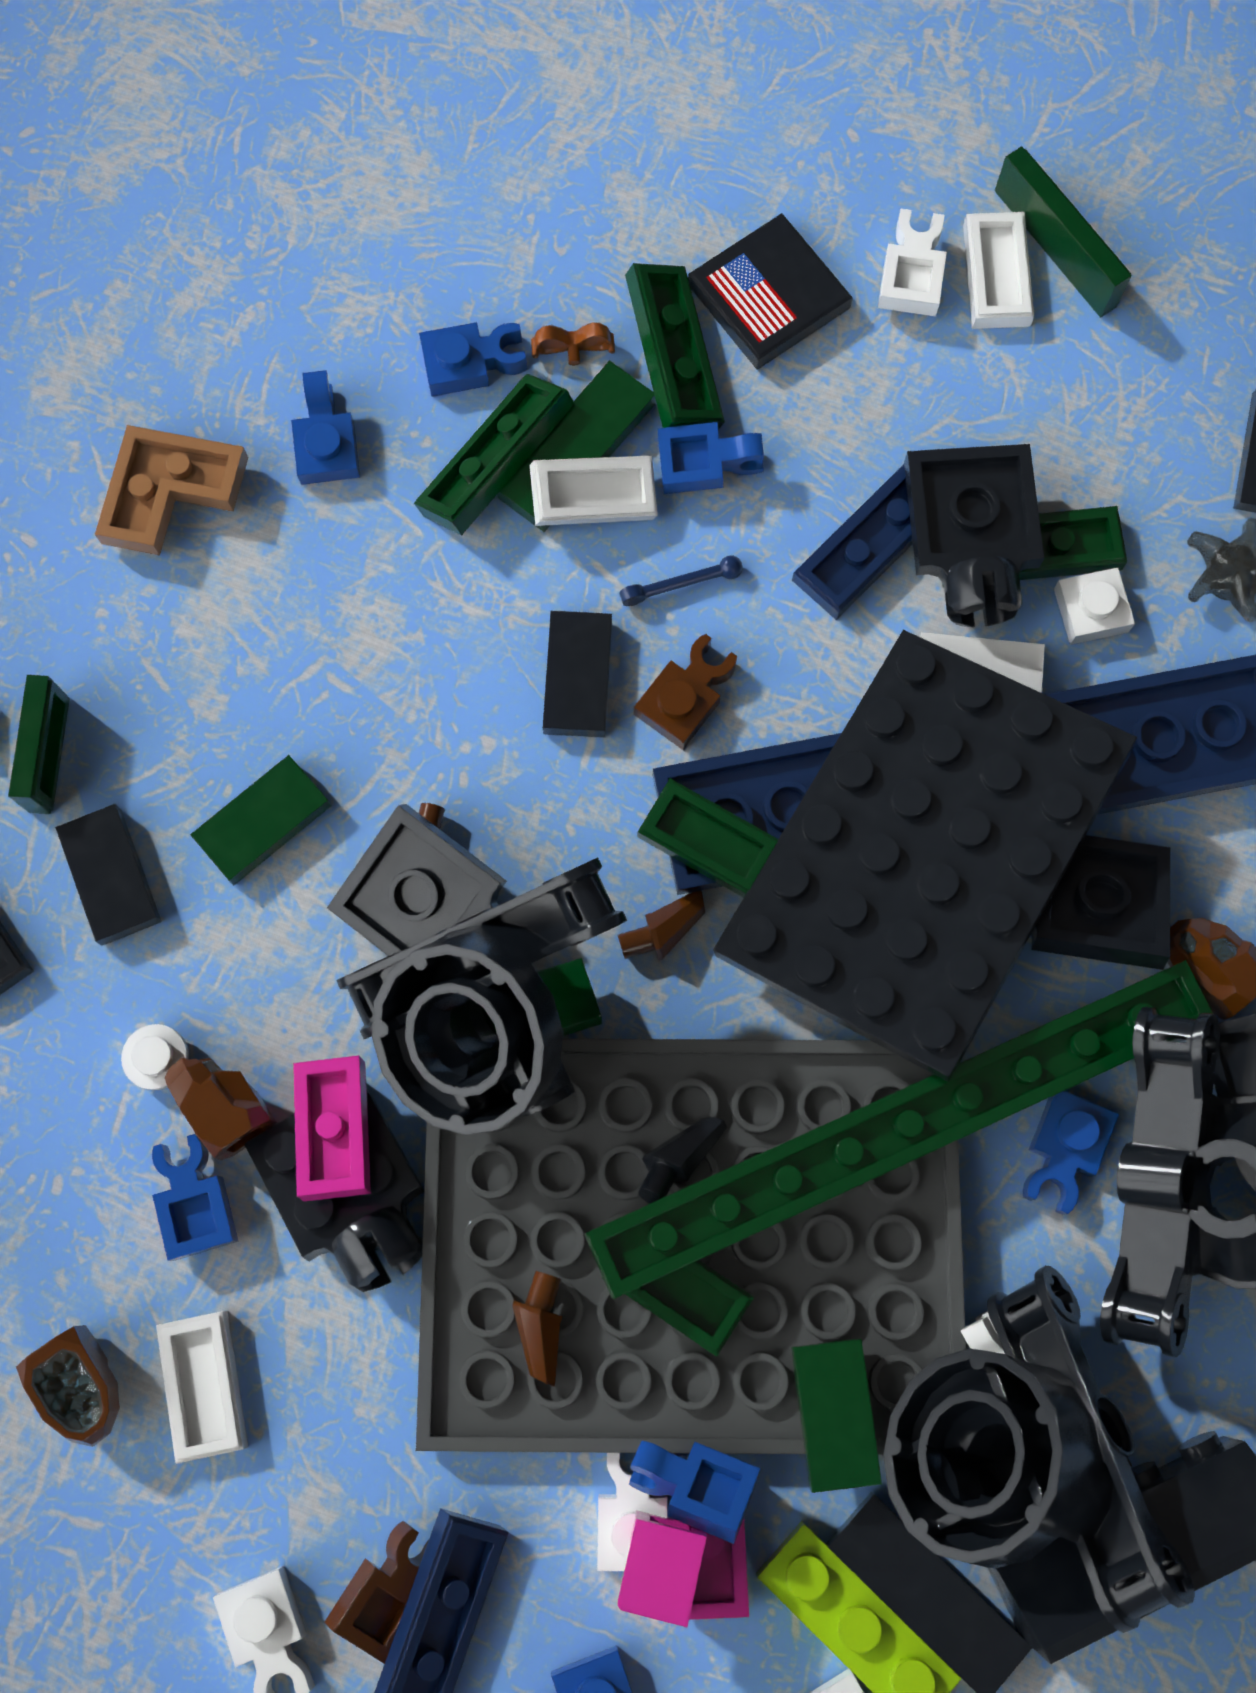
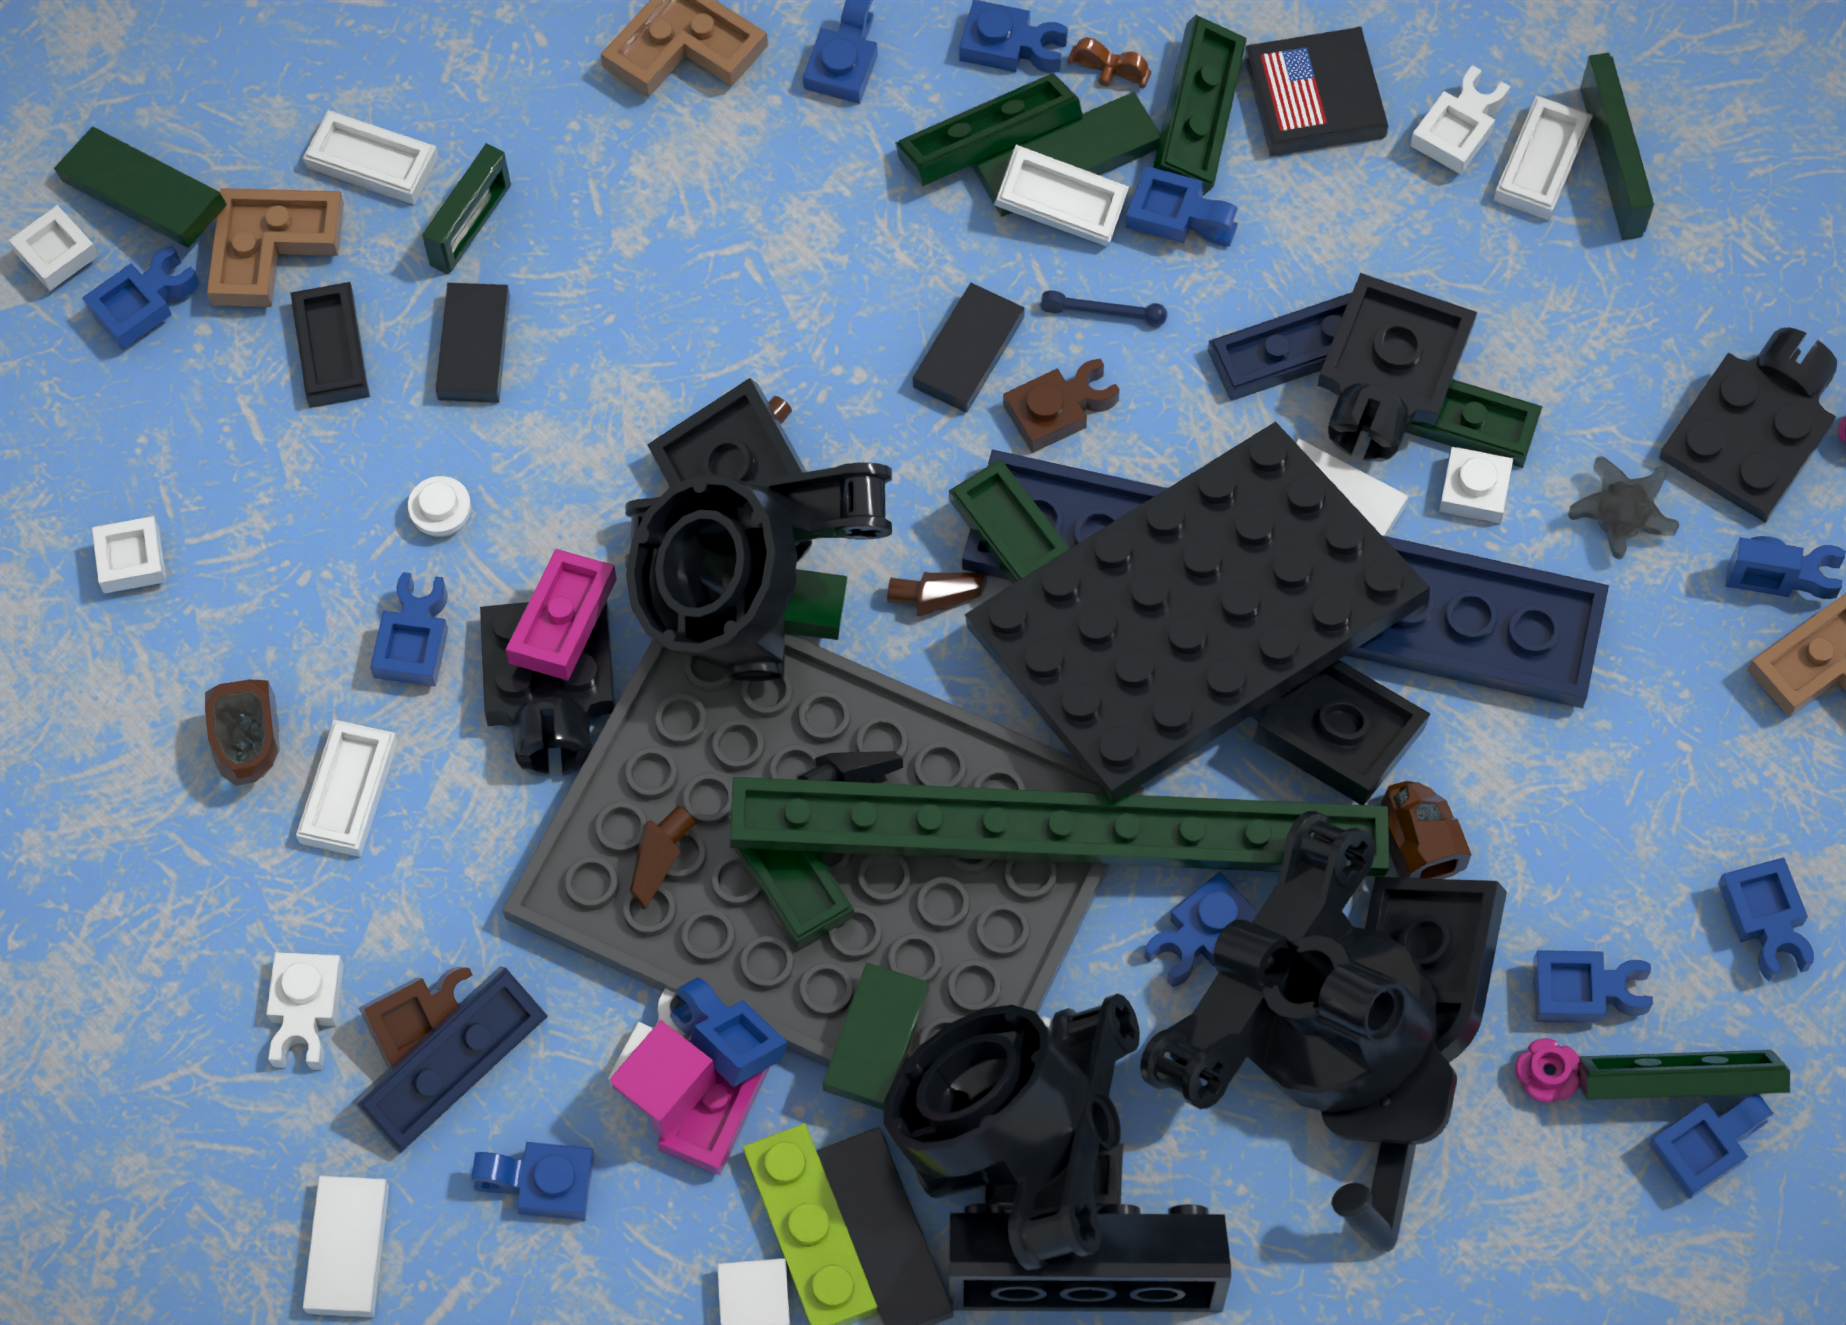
camera: 25 degrees right, 10 degrees down
(218, 1105) = (474, 565): reddish brown rock -> none
(261, 820) = (627, 352): dark green tile -> none

